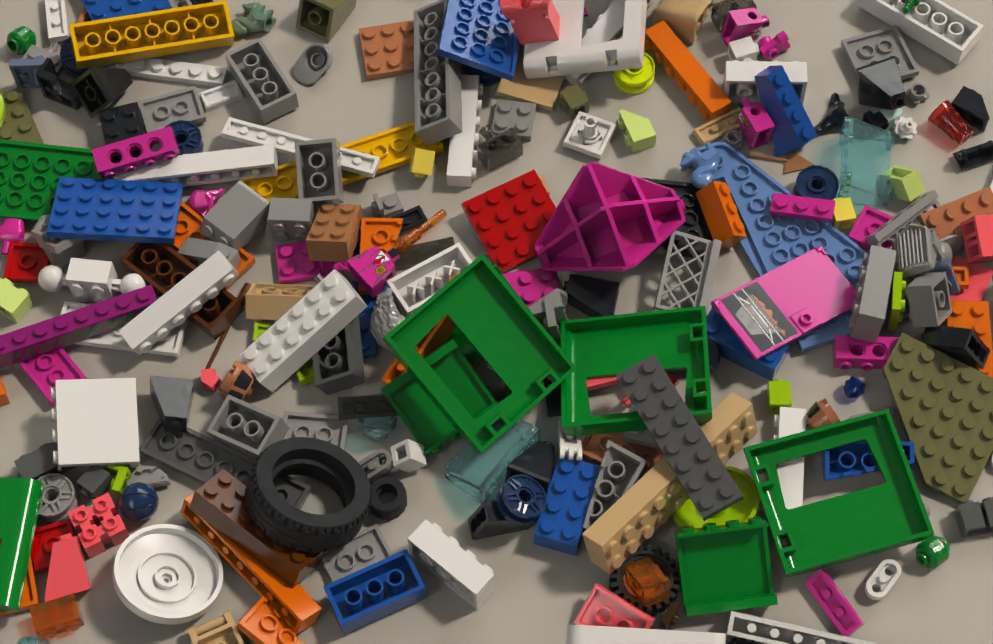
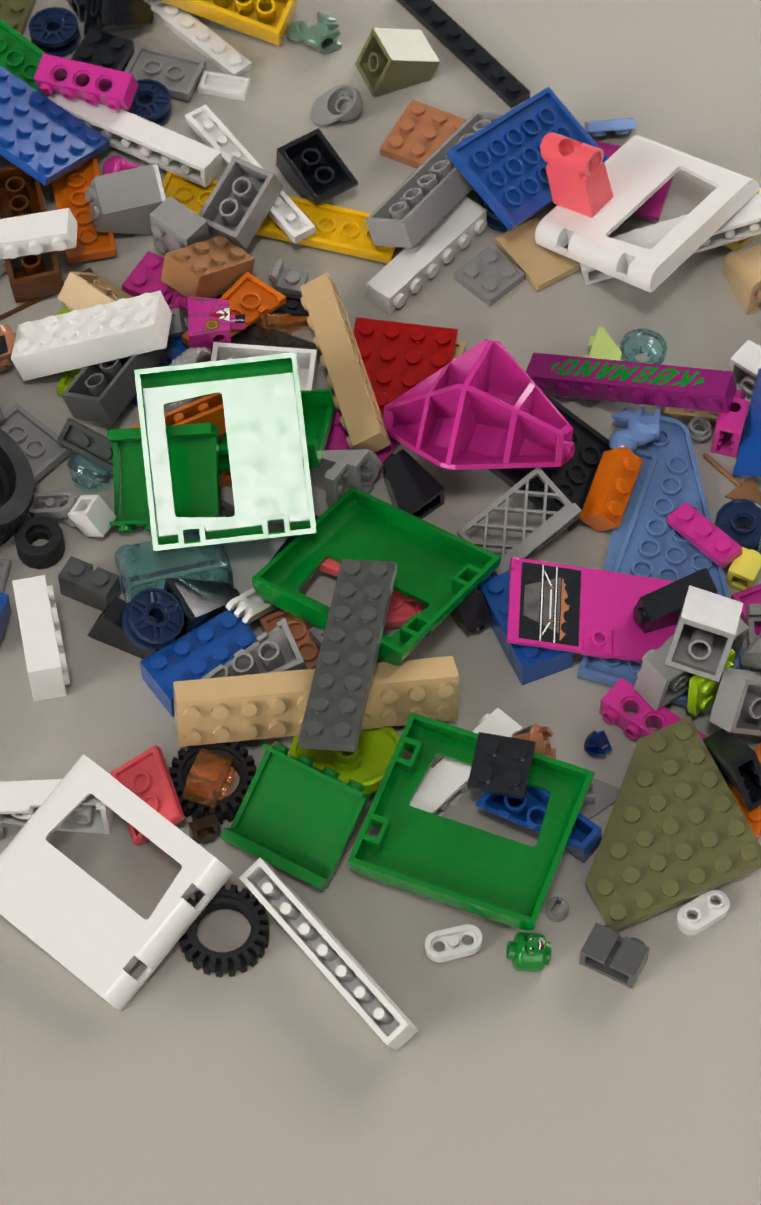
camera: 35 degrees right, 5 degrees down
(66, 119) = (55, 31): none -> dark blue wheel
(200, 250) = (86, 228): light grey slope -> none
(262, 80) = (270, 91): light grey brick -> none
(341, 117) = (314, 167): none -> black slope
(421, 162) = (354, 258): light yellow brick -> none
(449, 505) = (88, 586): none -> dark grey piece
(484, 240) = (344, 364): none -> tan brick
(498, 148) = (443, 290): clear smoke brick -> none
(573, 100) = (564, 293): olive brick -> none
(592, 131) = (548, 329): white plate -> none
(637, 79) = (657, 308): neon yellow wheel -> none
(656, 101) = (645, 342): none -> clear light blue piece
(679, 133) = (633, 382): none -> magenta brick
(686, 71) = (710, 318): orange brick -> none
(778, 395) = (511, 697): lime brick -> none
(830, 443) = (501, 765): none -> black plate
(833, 263) = (664, 605): none -> black slope
(834, 603) = (381, 929): dark pink plate -> none
(883, 272) = (704, 633): none -> light grey slope

